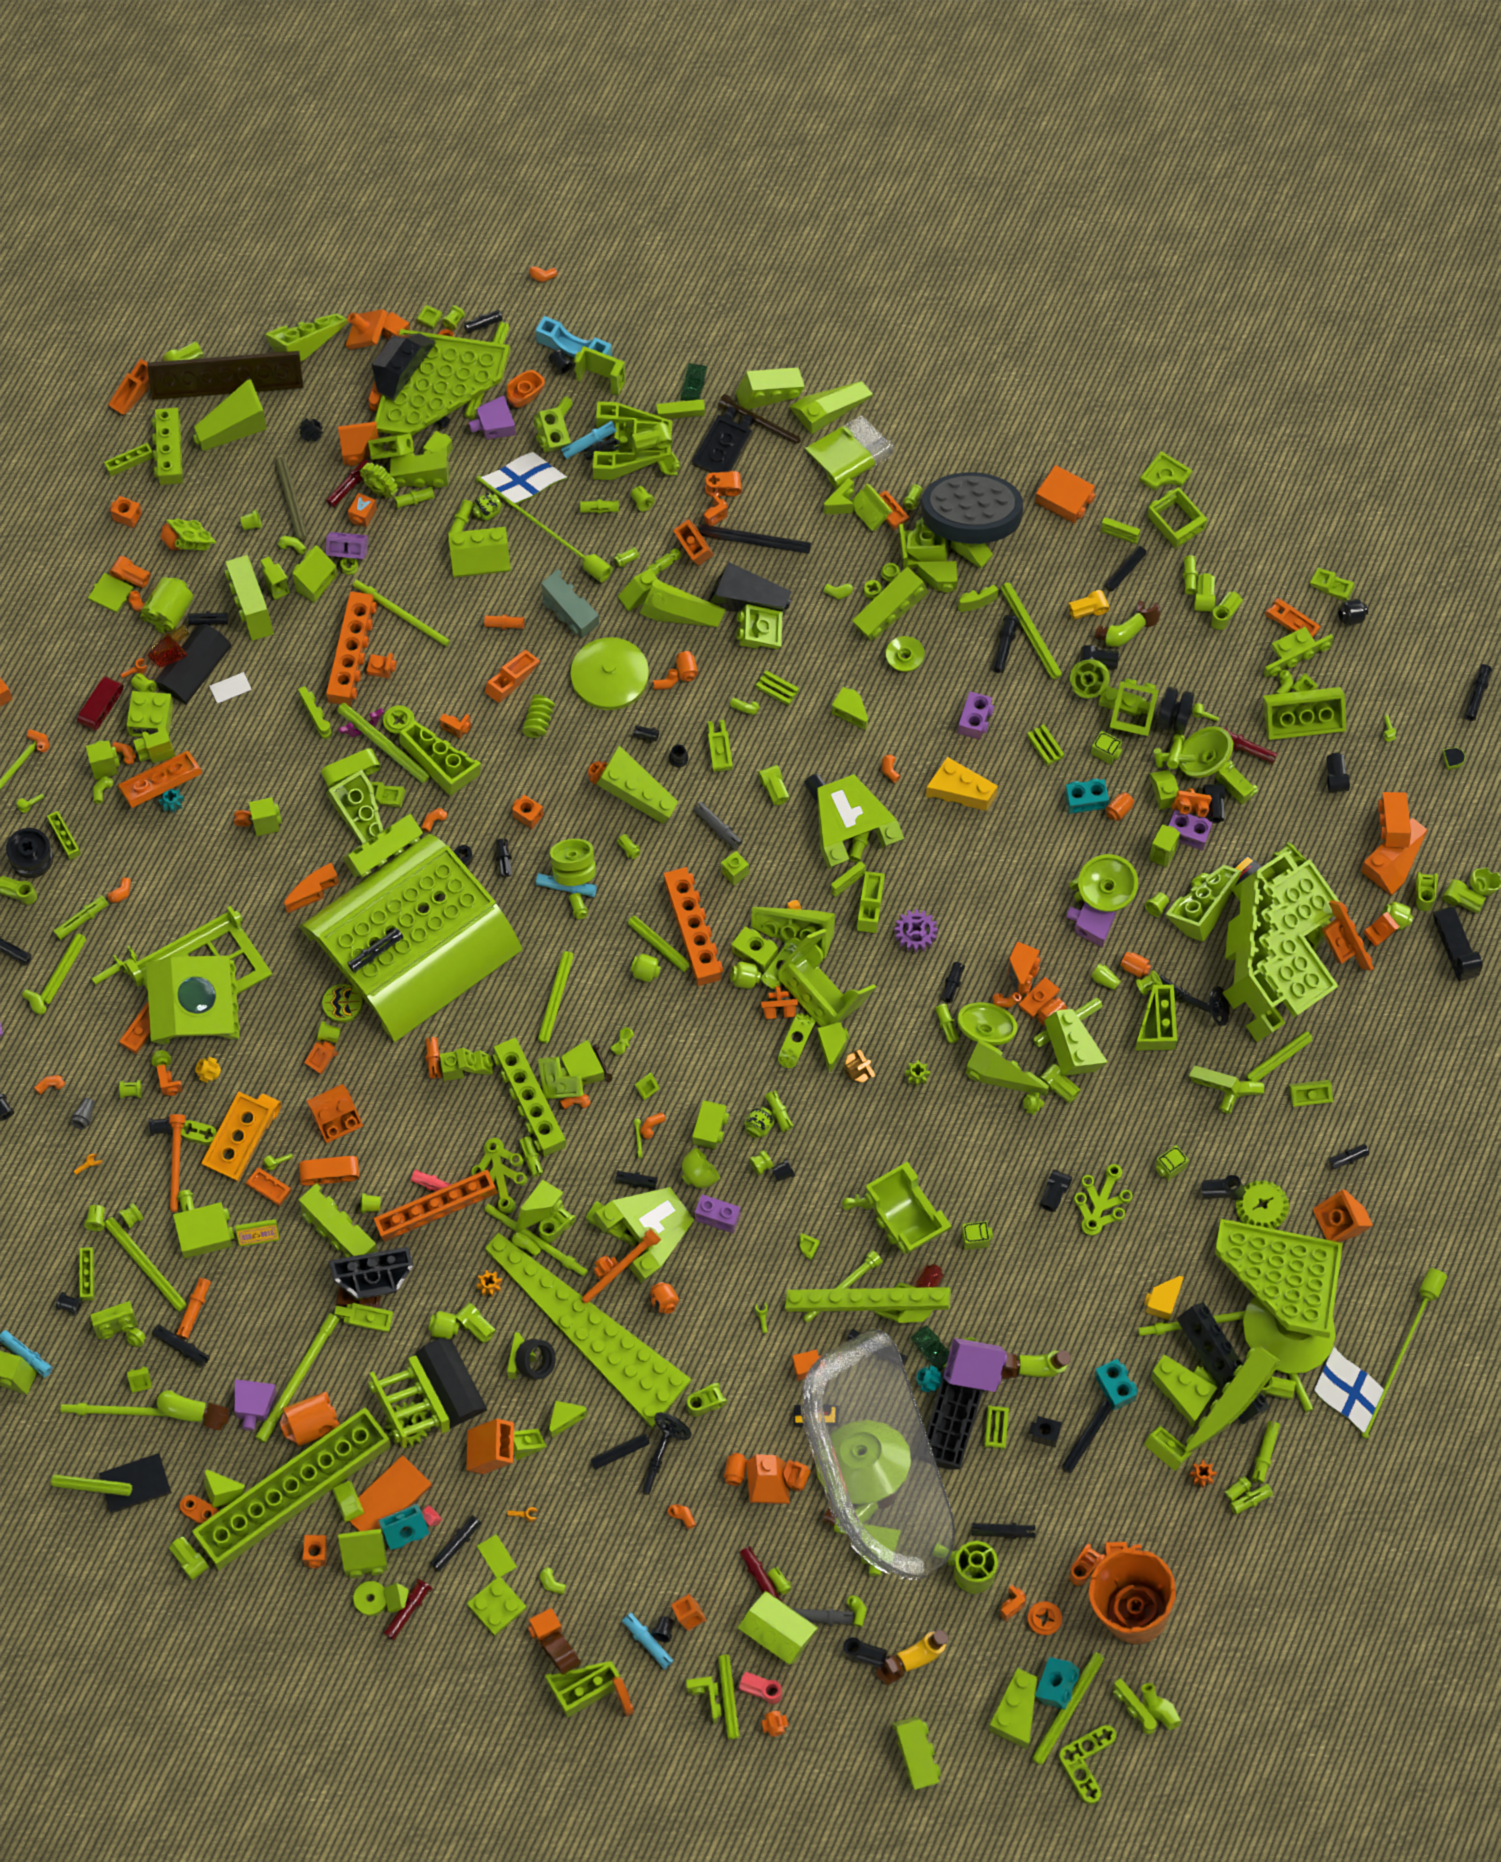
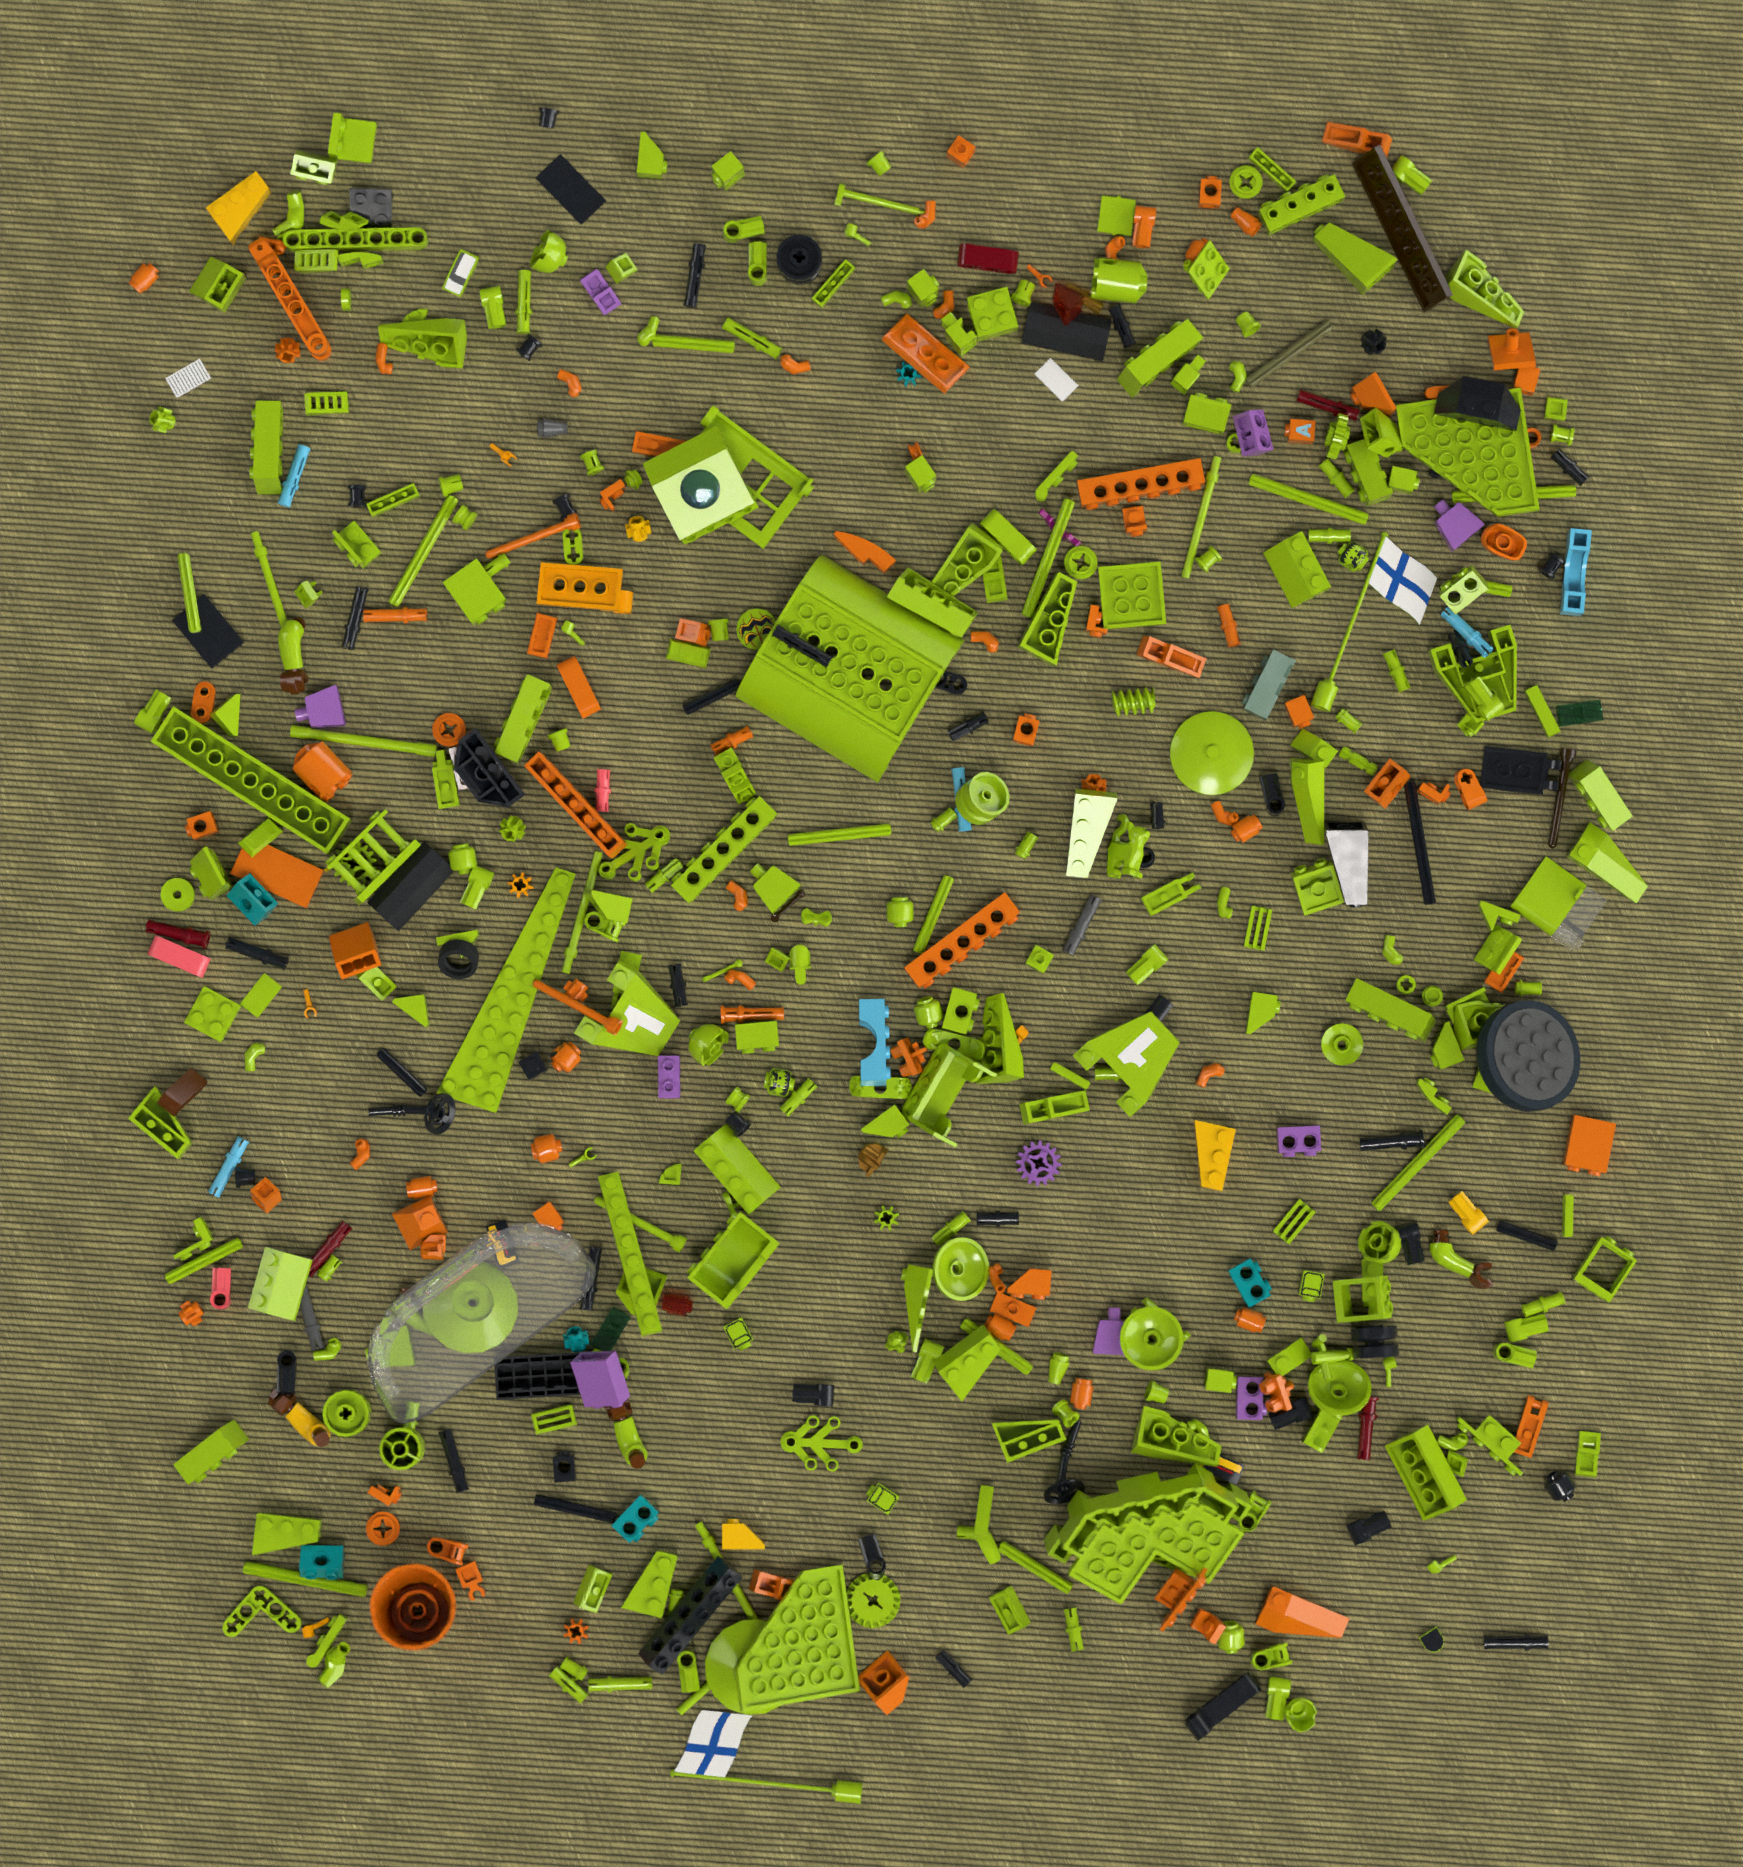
camera: 70 degrees right, 20 degrees up
(115, 968) = (714, 395): lime piece -> none
(135, 1337) = (346, 573): lime plate -> none
(136, 479) = (1255, 183): none -> lime gear
(163, 492) = (1246, 221): none -> orange cone
(257, 1232) = (491, 645): slope -> none
(311, 1294) = (439, 728): none -> orange gear
(334, 1113) = (638, 668): orange slope -> none
(338, 1069) = (688, 653): none -> lime tile
(386, 1061) = (711, 696): none -> black axle
(395, 1597) = (183, 919): lime slope -> none
(425, 522) = (1308, 499): none -> lime axle
(429, 1616) = (178, 956): none -> coral beam
(431, 1516) = (274, 919): coral tile -> none
(434, 1272) = (512, 828): none -> lime gear
(440, 618) = (1208, 559): none -> lime bush
(445, 688) = (1132, 595): none -> lime plate
(526, 1243) = (574, 898): lime arm -> none
(542, 275) = (1648, 506): orange arm -> none
(544, 1625) = (207, 1066): orange brick -> none
(556, 1085) = (744, 870): lime tile -> none
(603, 365) = (1554, 633): lime panel -> none
(603, 591) = (1299, 712): none -> orange brick
(622, 1695) = (162, 1164): orange tile -> none
(642, 498) = (1422, 711): lime bush -> none
(659, 1068) = (800, 962): none -> lime arm
(661, 1329) = (533, 1066): none -> black brick
(665, 636) = (1272, 792): none -> black piece
(669, 763) = (1126, 852): none -> lime animal
(685, 1134) = (741, 1014): none -> orange pin
(709, 1398) = (480, 1136): lime piece -> none
(732, 1021) = (872, 1016): none -> medium azure arch
(741, 1344) = (546, 1148): none -> orange head
(824, 1187) = (737, 1169): none -> lime slope
(923, 1597) = (334, 1413): none -> lime wheel
(1119, 1722) = (308, 1630): none -> light orange hand
(1165, 471) = (1658, 1238): lime tile -> none
(1218, 1286) = (769, 1584): none -> orange slope
(1236, 1397) = (654, 1641): lime slope -> none
(1346, 1044) = (1073, 1629): none -> lime pin
(1395, 819) = (1333, 1602): orange brick -> none

